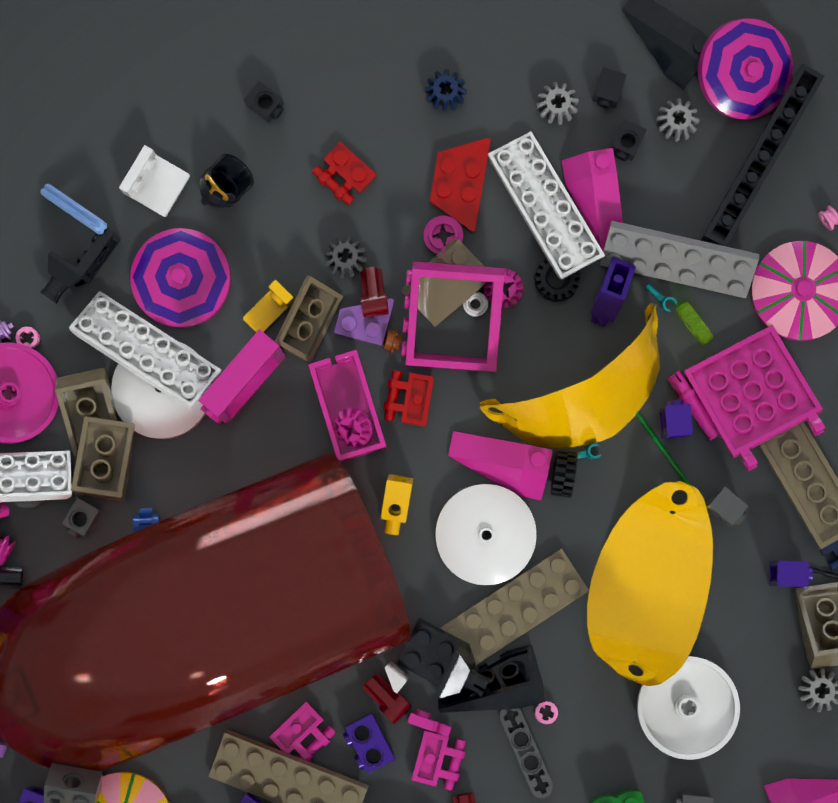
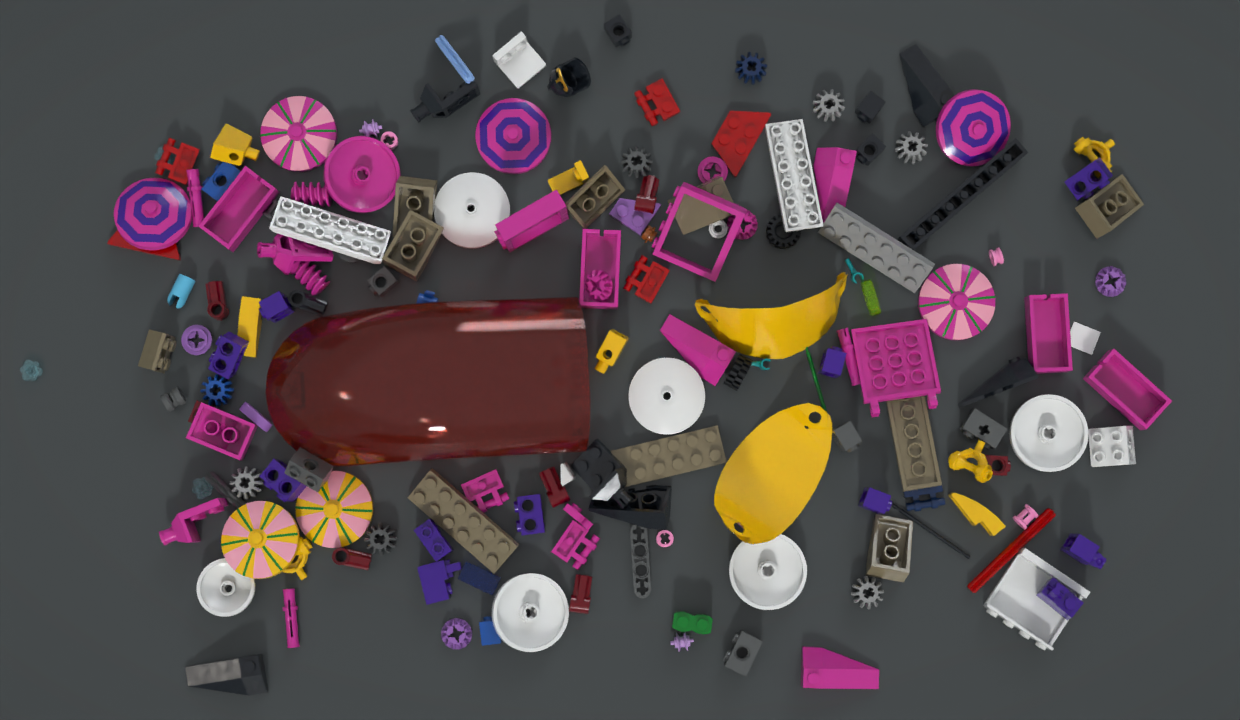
camera: 20 degrees right, 0 degrees up
(144, 350) = (469, 177): white plate -> none
(612, 291) = (819, 254): dark purple hinge -> none

